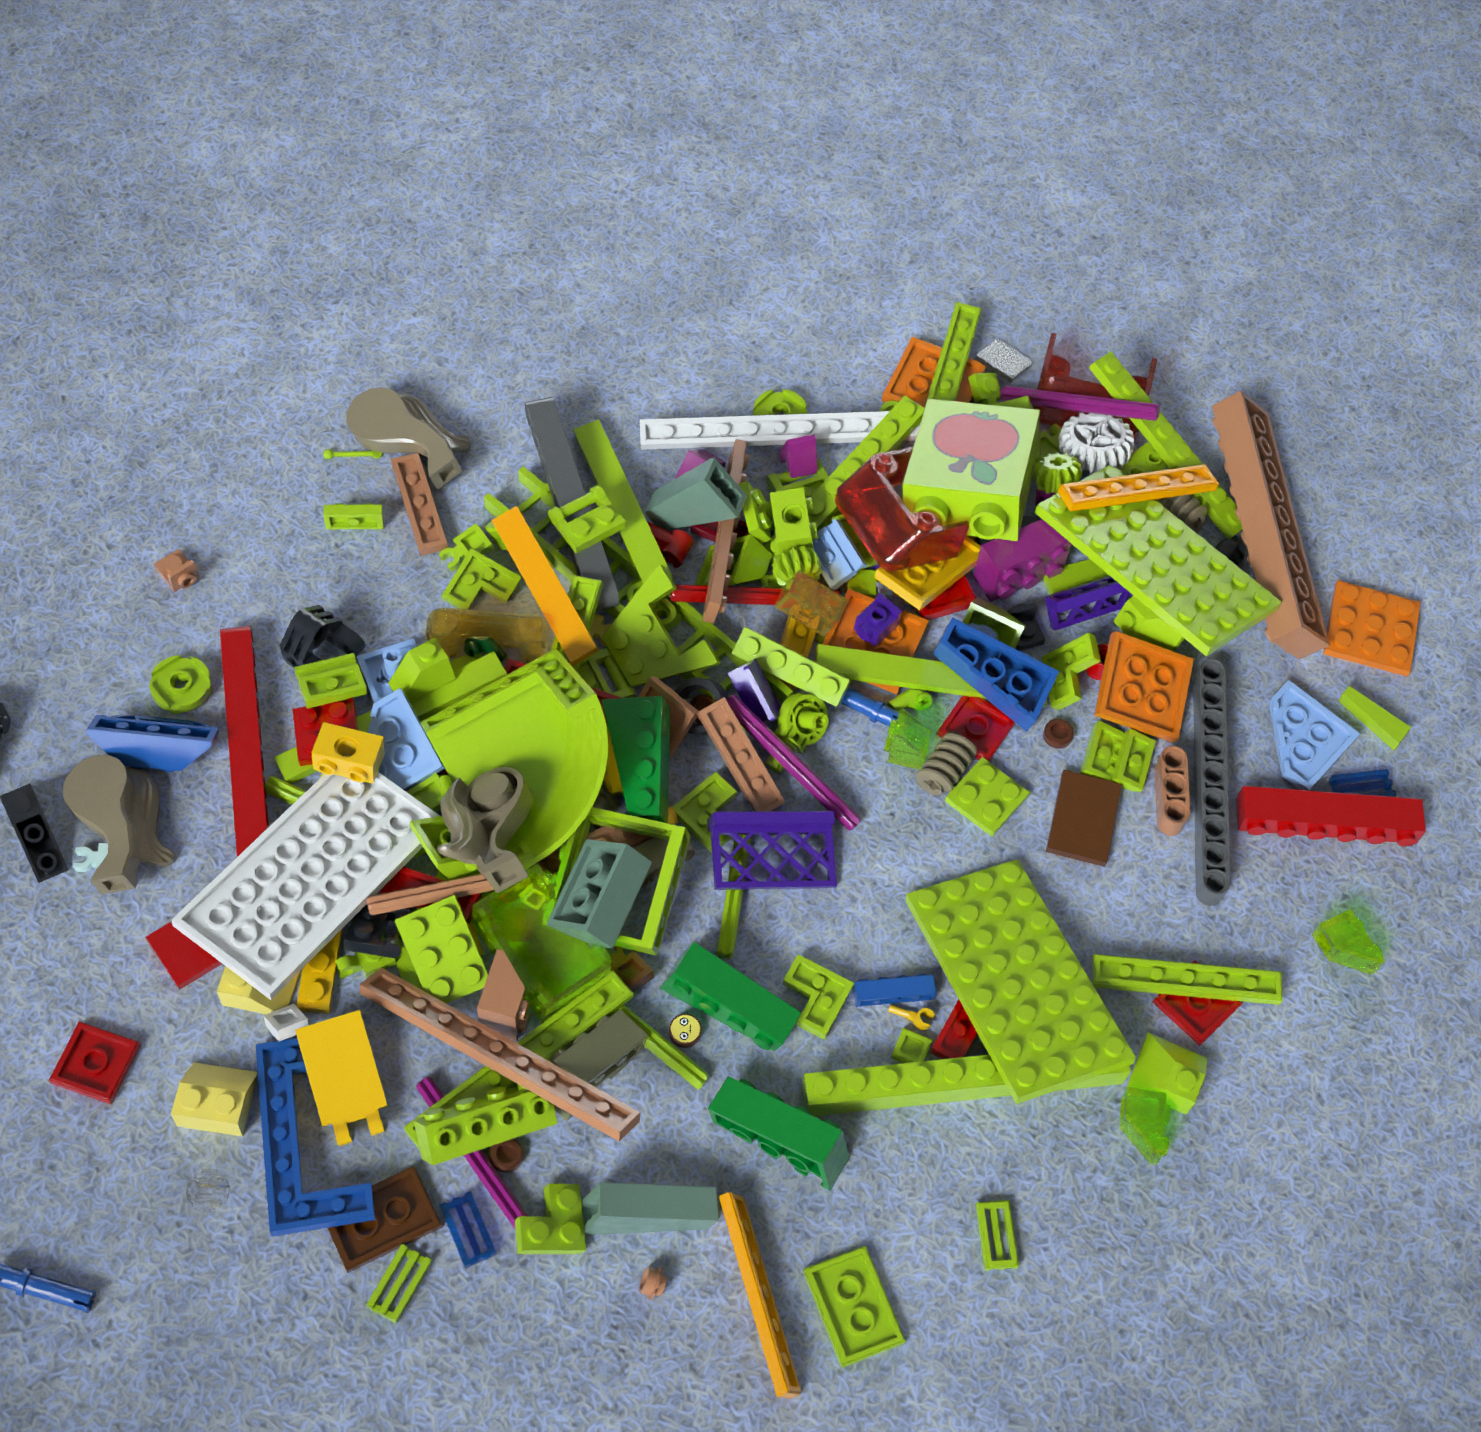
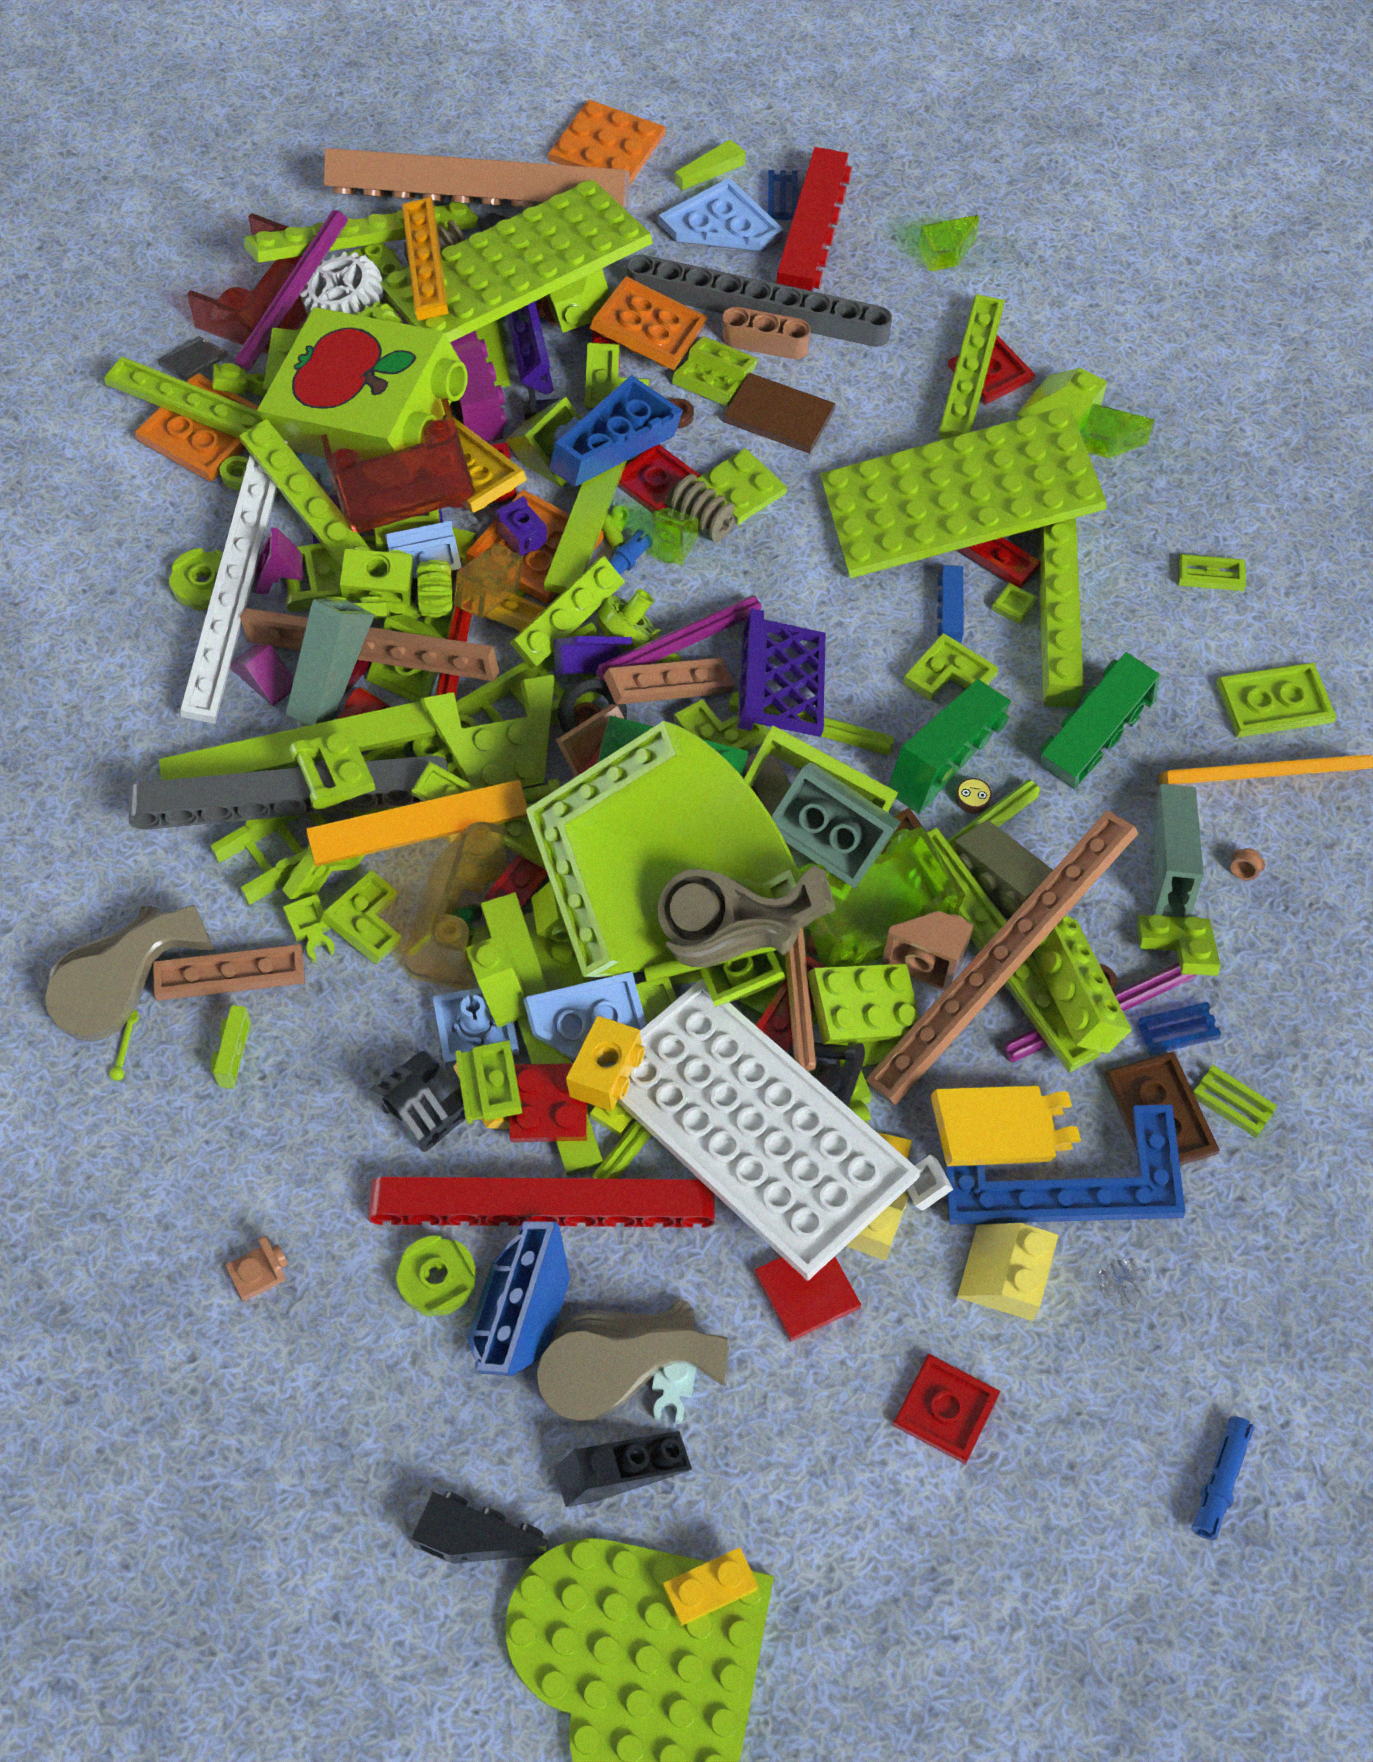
camera: 75 degrees left, 0 degrees up
(913, 1016) = (981, 592): yellow hand -> none

